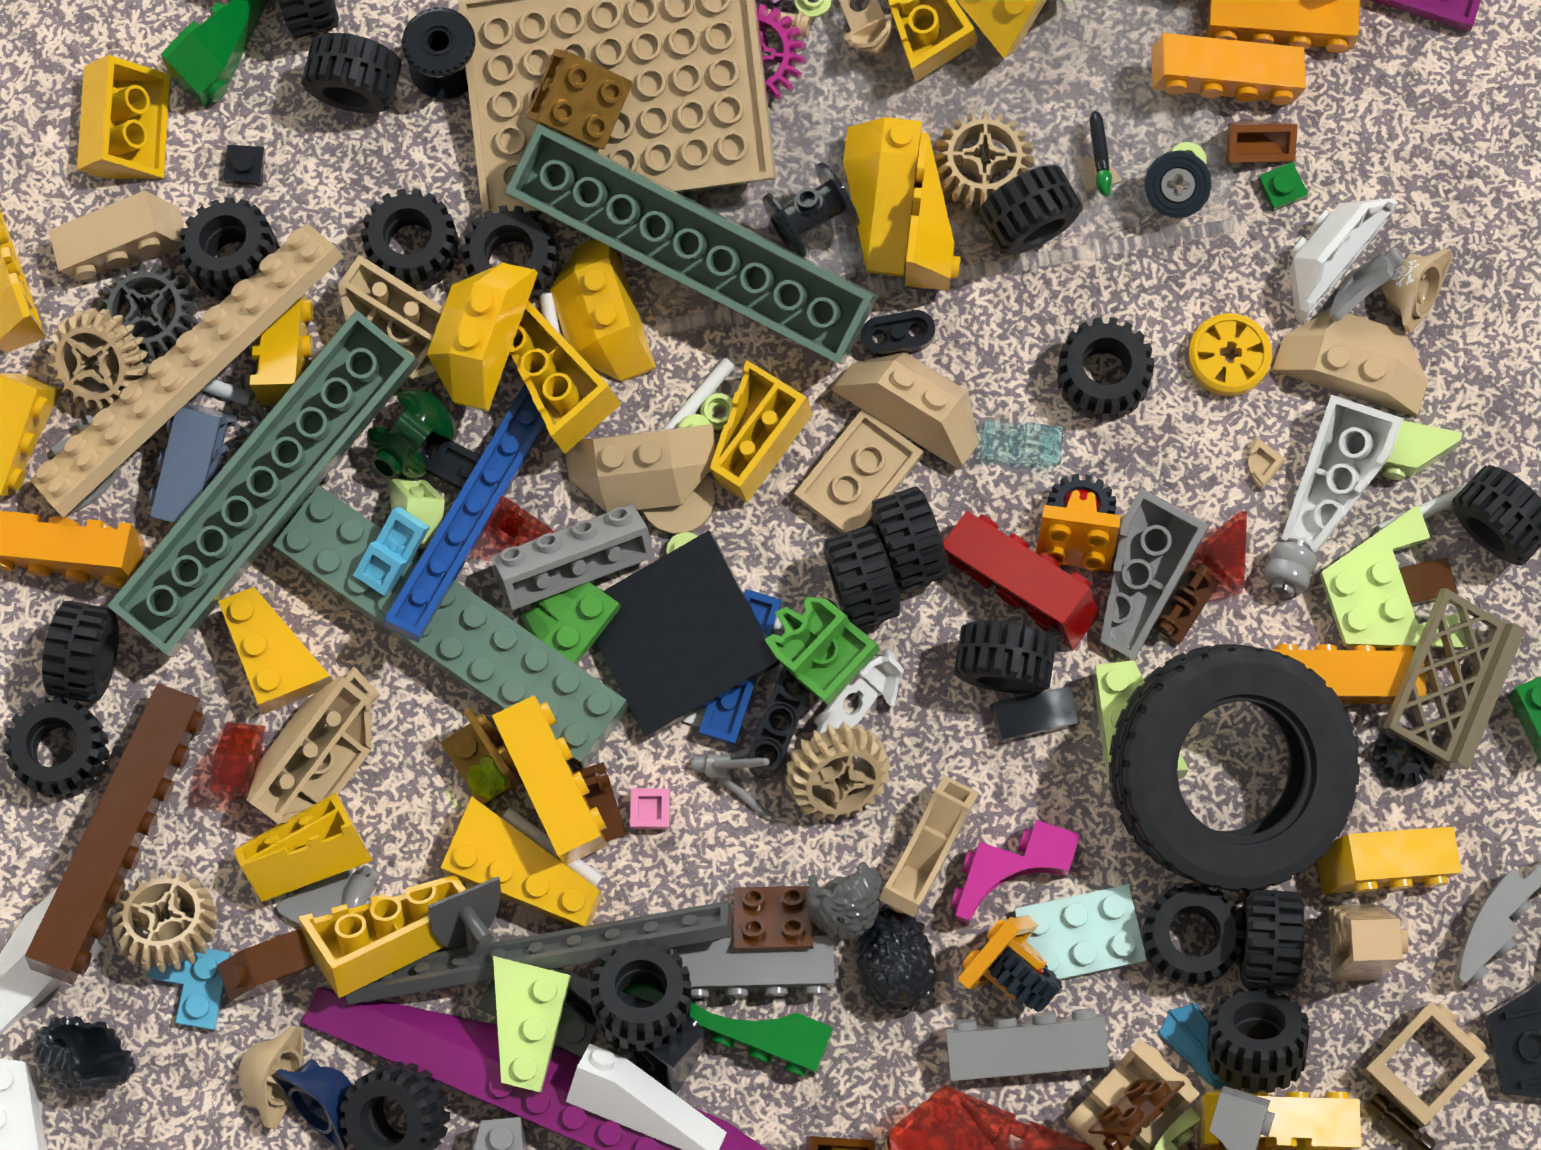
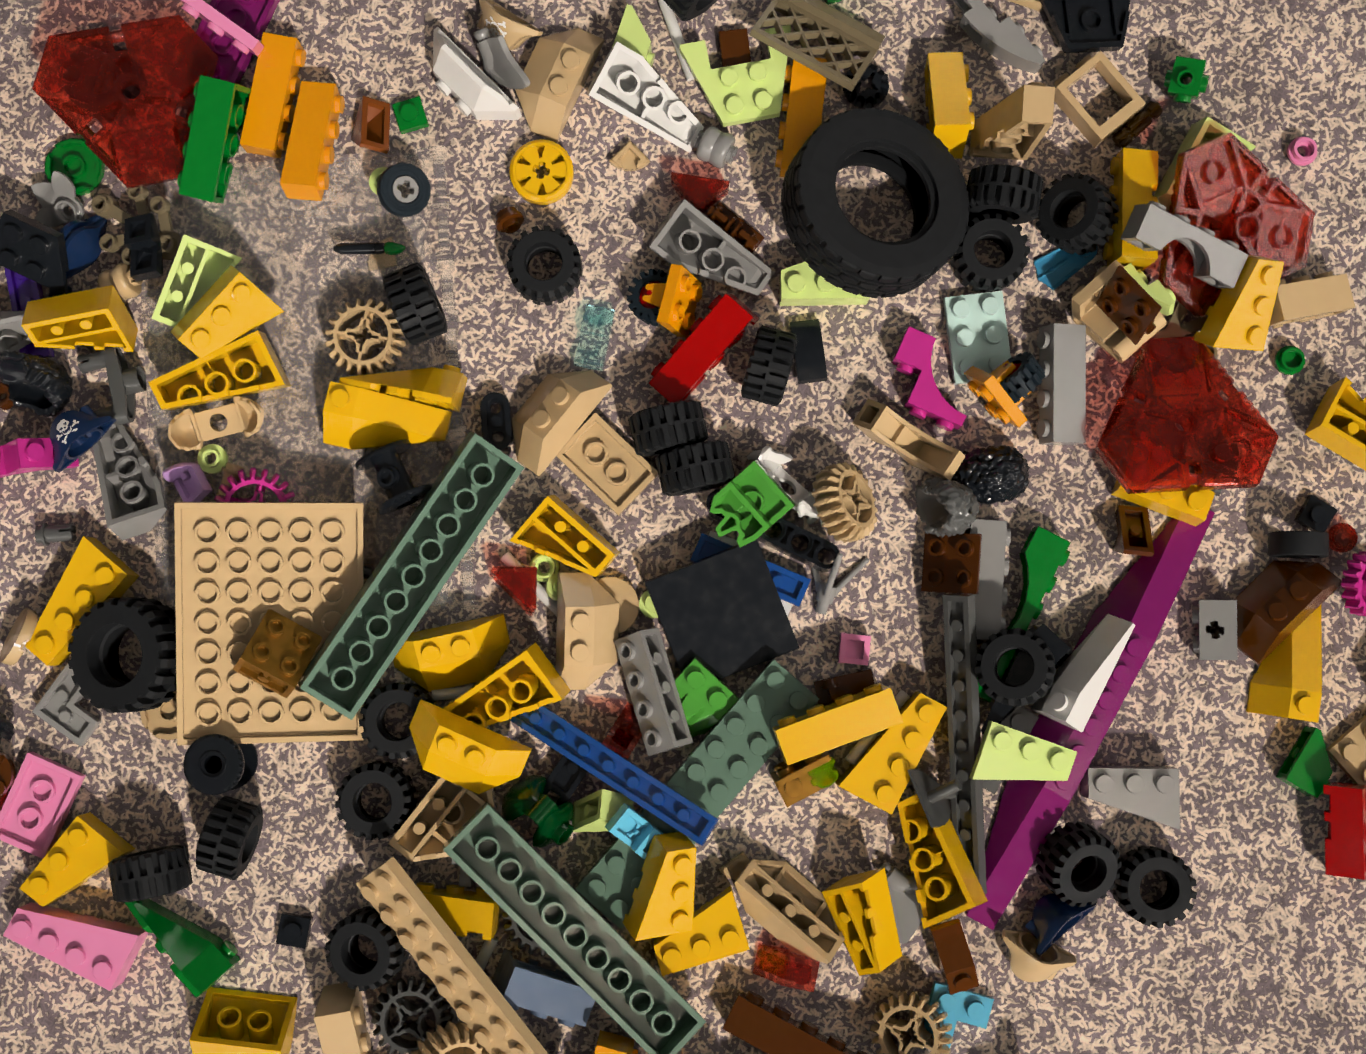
camera: 85 degrees left, 10 degrees up
(324, 587) = (666, 890): none -> yellow wedge
(694, 383) = (519, 584): none -> clear red slope
(1160, 320) = (509, 220): none -> reddish brown plate

